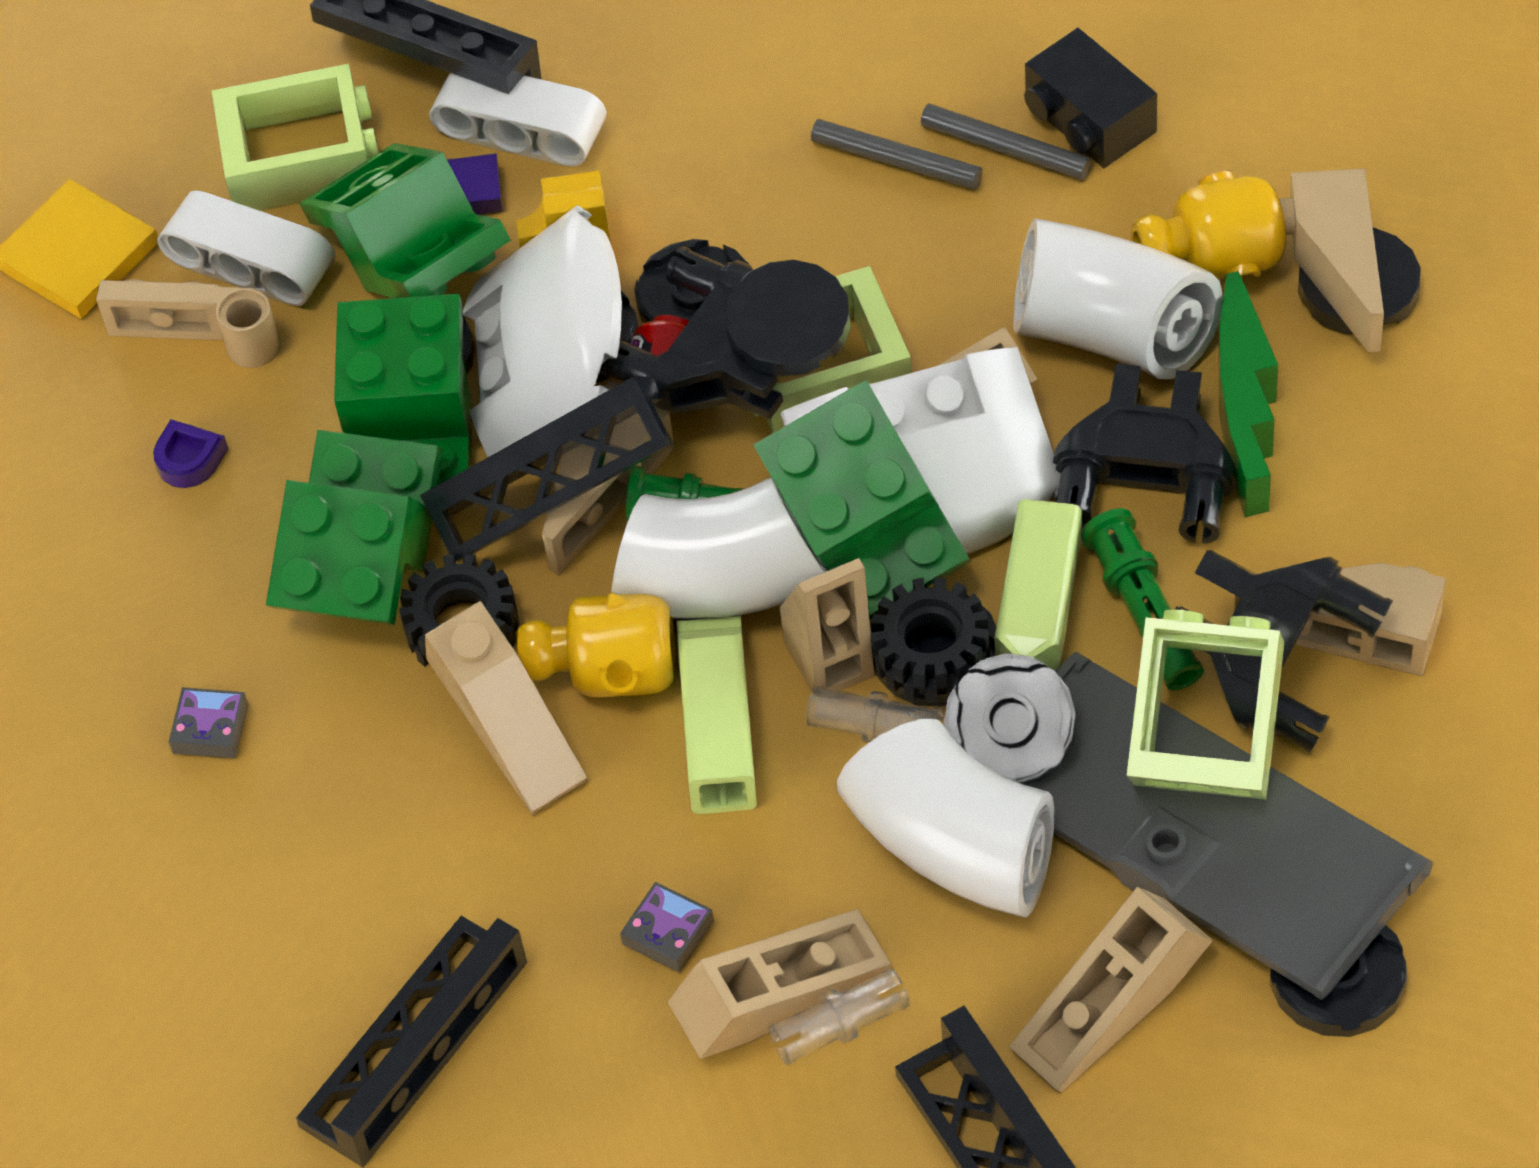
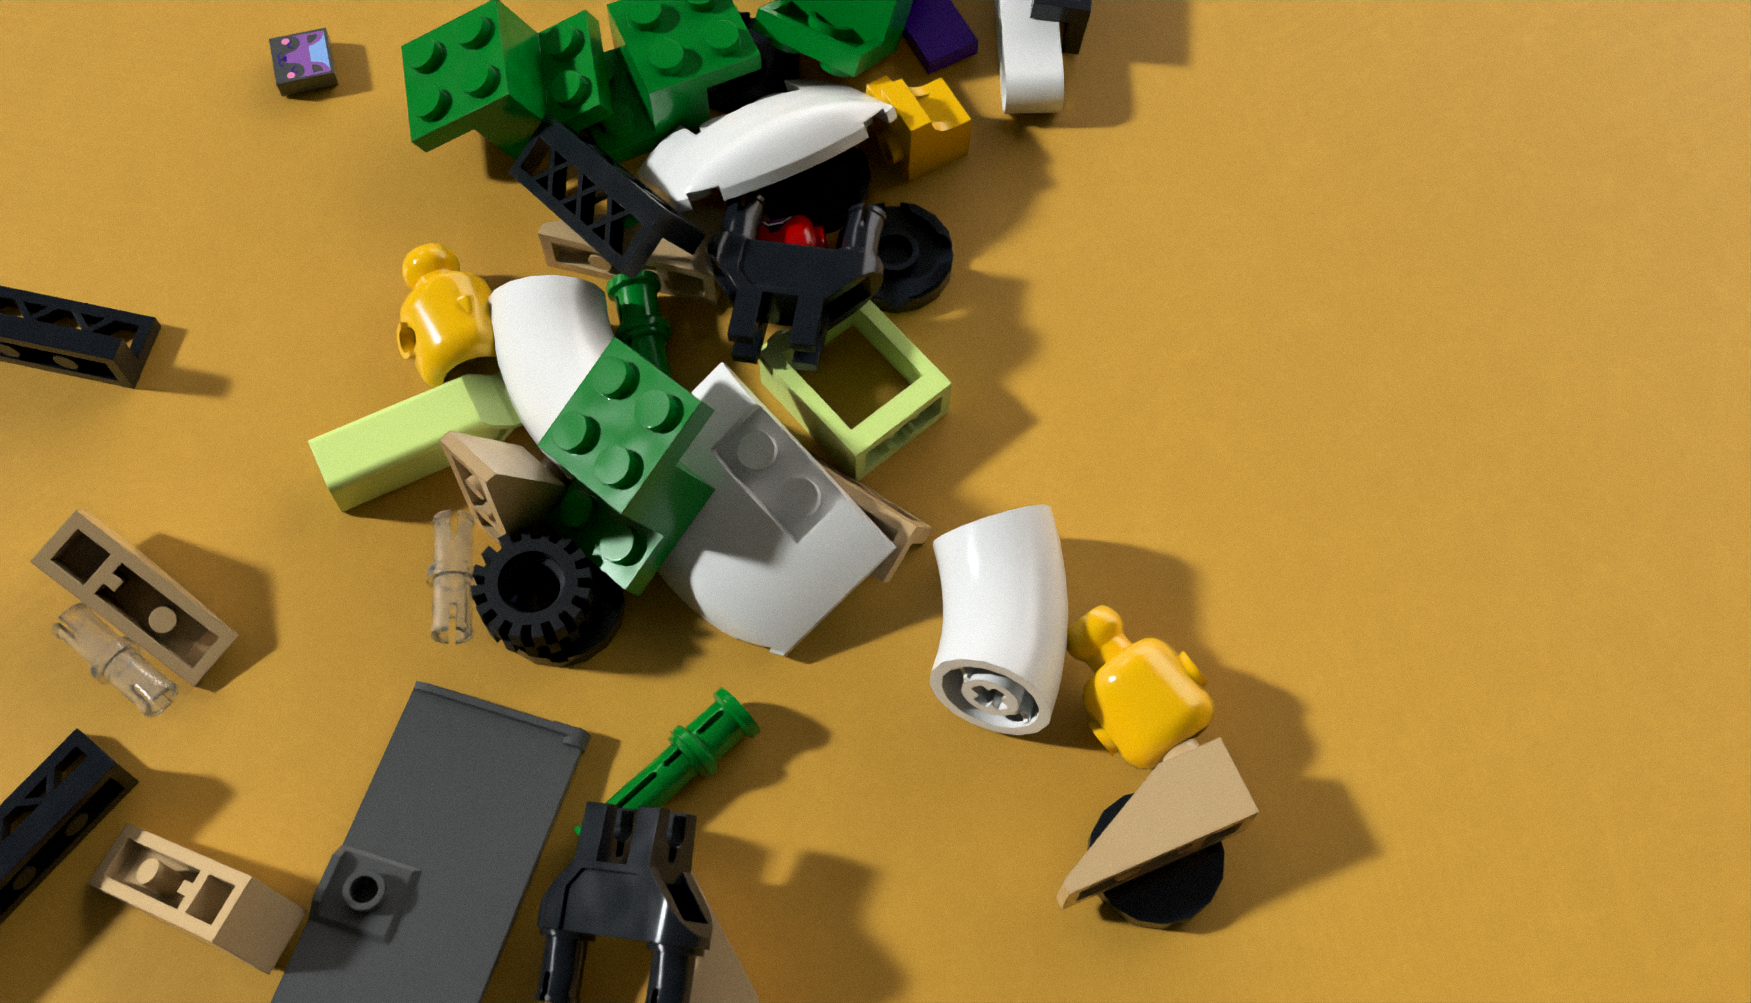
camera: 60 degrees right, 10 degrees up
(452, 586) = (455, 172): black tyre -> none
(503, 706) = (351, 259): tan slope -> none
(667, 927) = (185, 484): dark grey tile -> none
(787, 317) = (808, 320): black tile -> none
(896, 154) = (1129, 369): dark grey bar -> none
(952, 816) = (324, 689): white brick -> none
(1006, 141) = (1188, 460): dark grey bar -> none
(1013, 717) = (460, 696): tile -> none
(1039, 581) = (629, 672): yellowish green piece -> none
(1090, 98) = (1266, 515): black brick -> none
(1149, 450) = (848, 717): black connector -> none
(1193, 773) = (437, 877): yellowish green window -> none
(1245, 389) = (972, 777): green slope -> none

